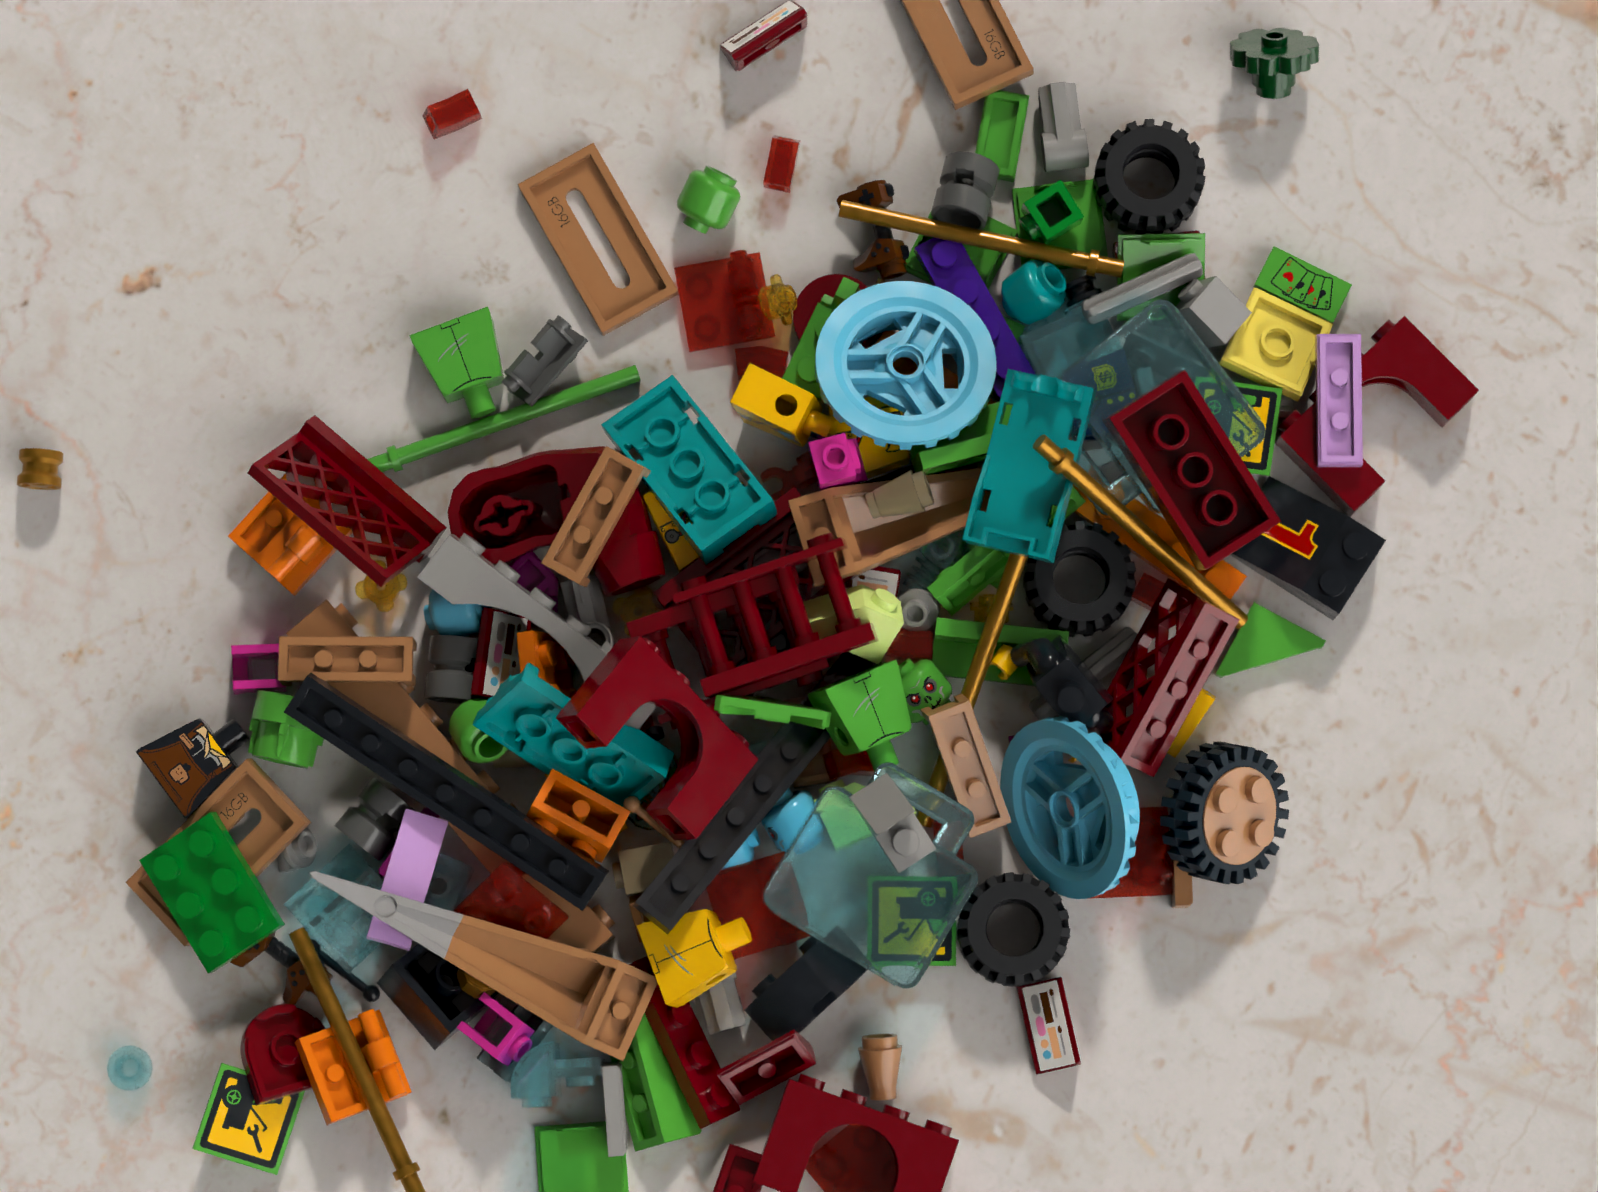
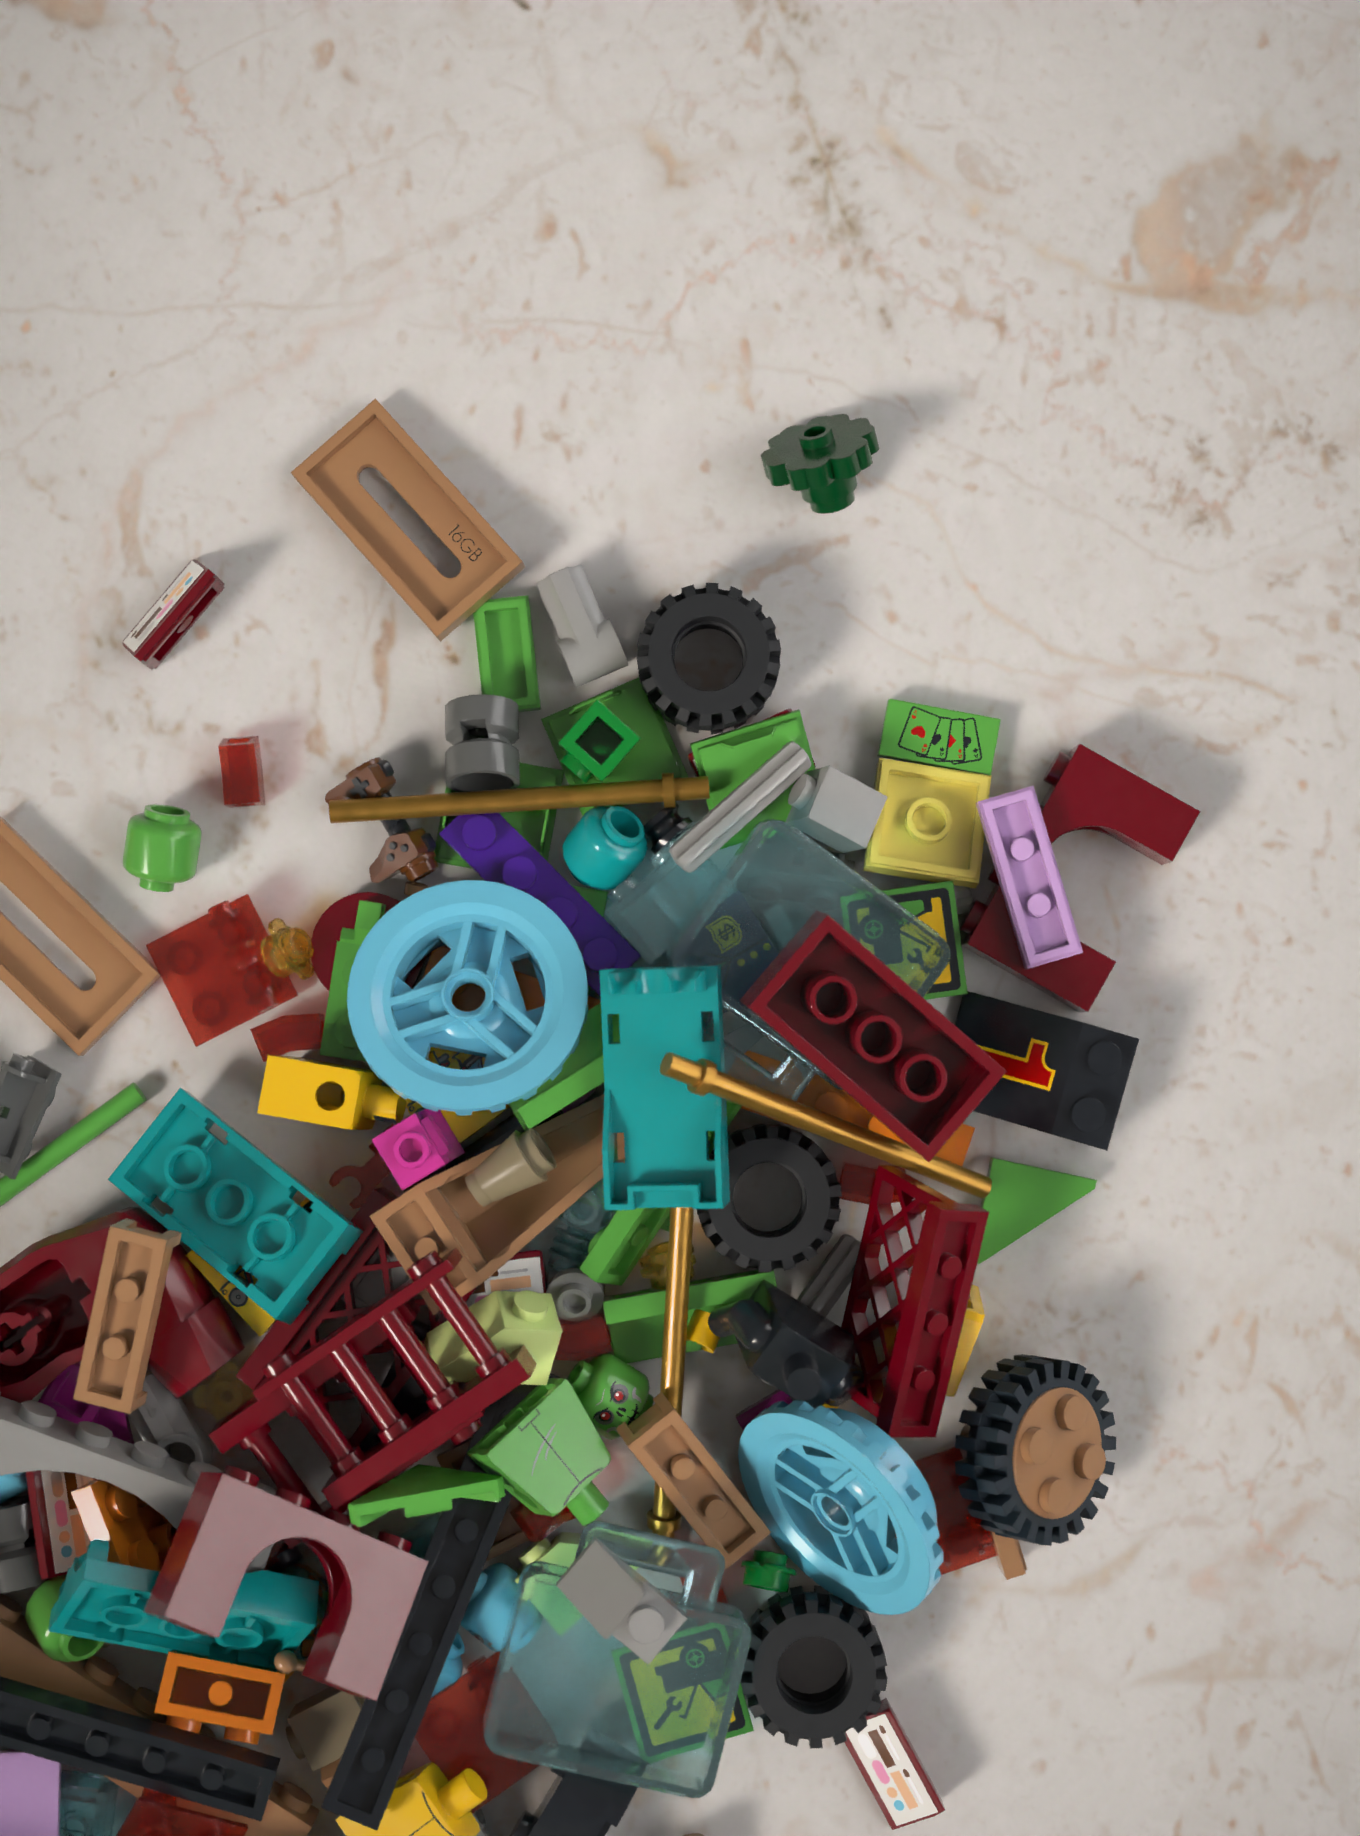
camera: 20 degrees left, 5 degrees up
(998, 855) = (767, 1571): none -> green plate

